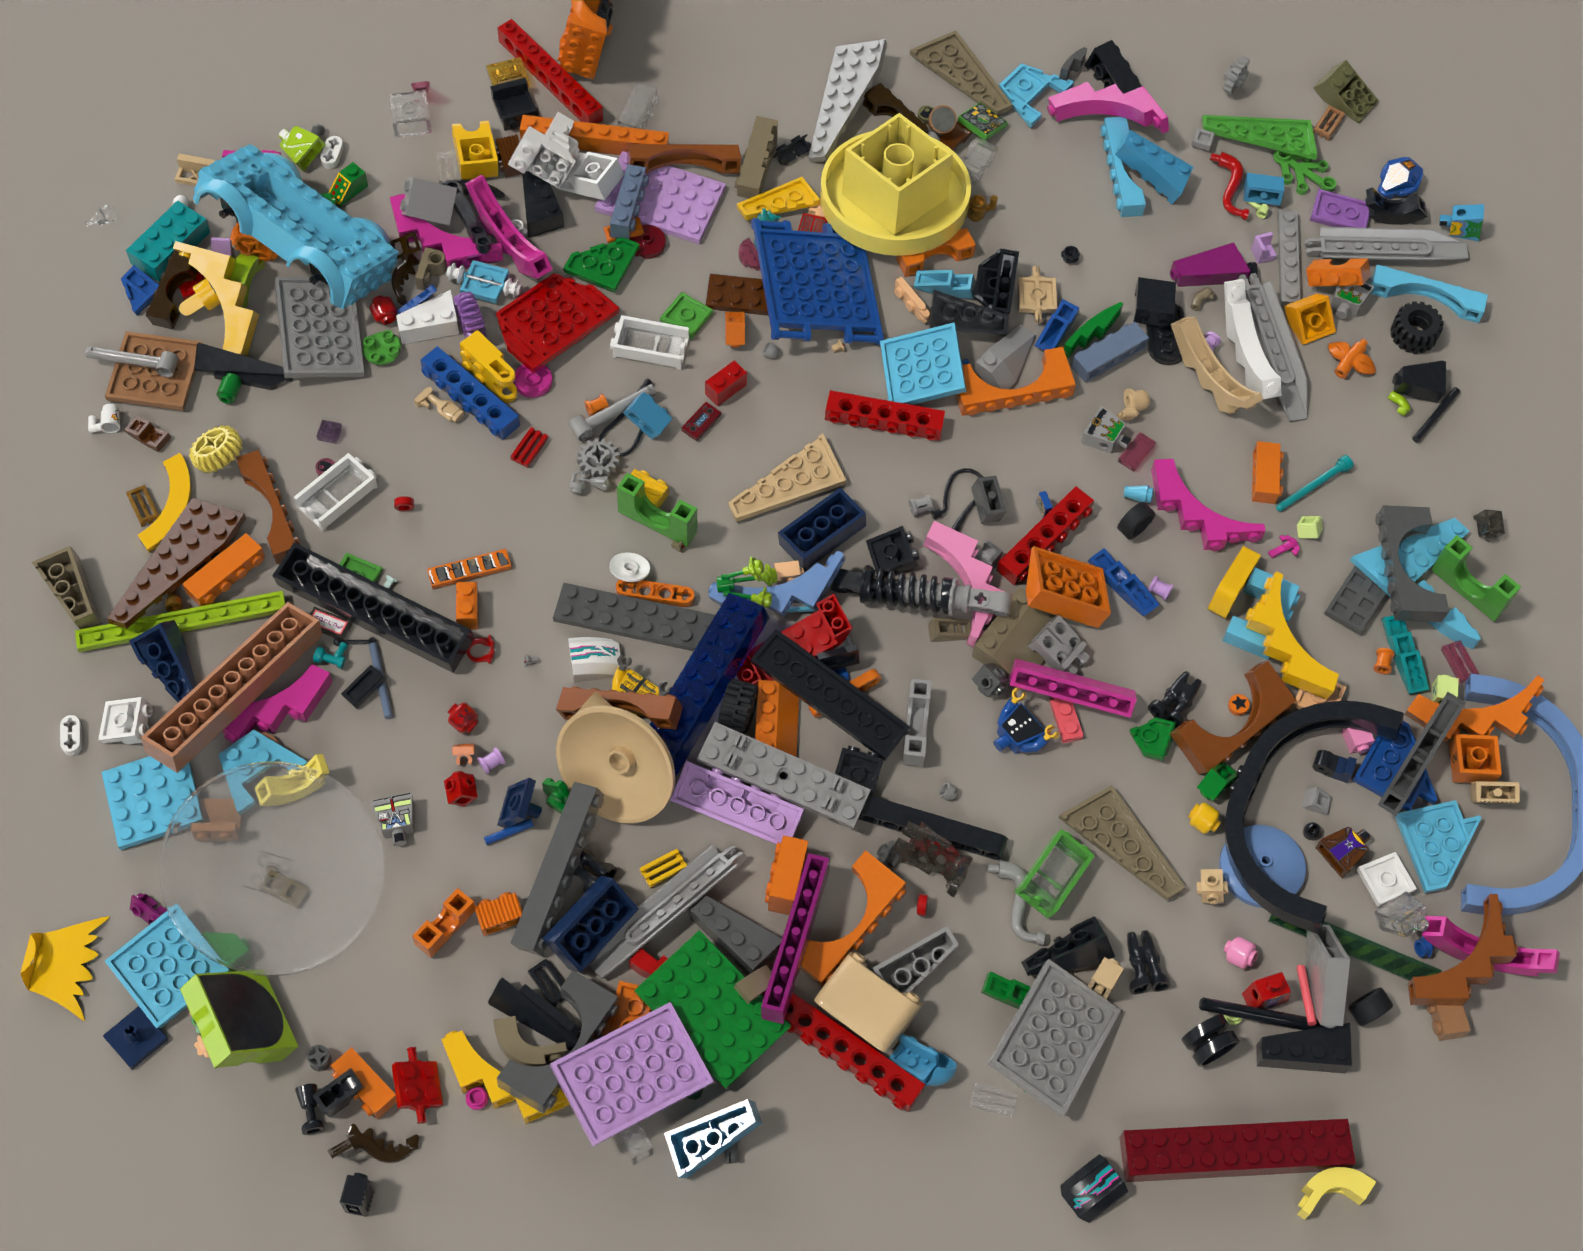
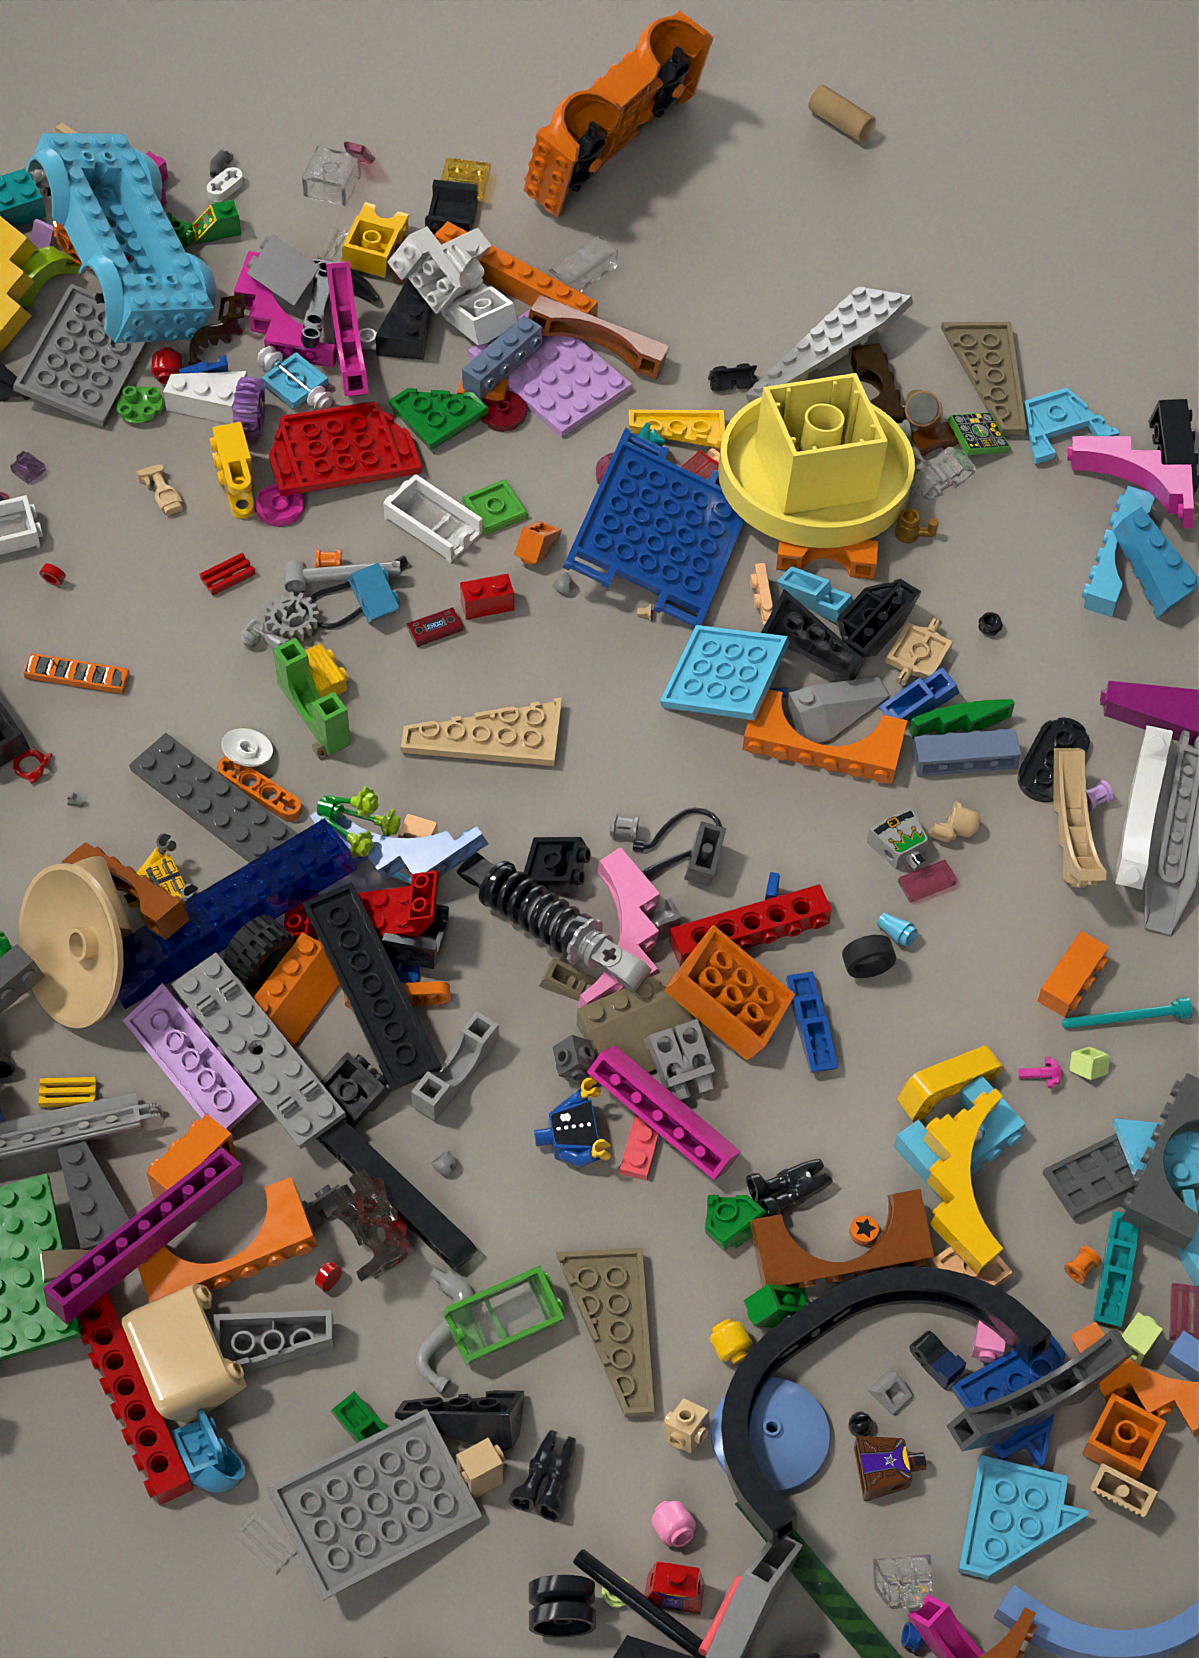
camera: 30 degrees right, 5 degrees down
(301, 146) = (192, 165): lime torso -> none
(432, 263) = (246, 338): dark tan plate -> none
(438, 360) = (200, 489): blue brick -> none
(467, 604) = (44, 710): orange brick -> none
(550, 73) = (511, 192): red brick -> none
(593, 658) = (138, 824): white slope -> none
(736, 294) = (559, 504): reddish brown plate -> none
(757, 157) = (683, 369): dark tan wedge -> none
(822, 528) = (490, 800): dark blue brick -> none
(892, 410) = (612, 684): red brick -> none
(1073, 63) = (1133, 411): dark grey slope -> none
(1155, 302) = (1056, 717): black panel -> none
(1160, 588) = (852, 1049): lavender bush -> none
(1193, 515) = (949, 984): dark pink arch -> none
(1201, 295) = (1122, 736): dark tan arm -> none
(1386, 879) = (917, 1527): white plate -> none

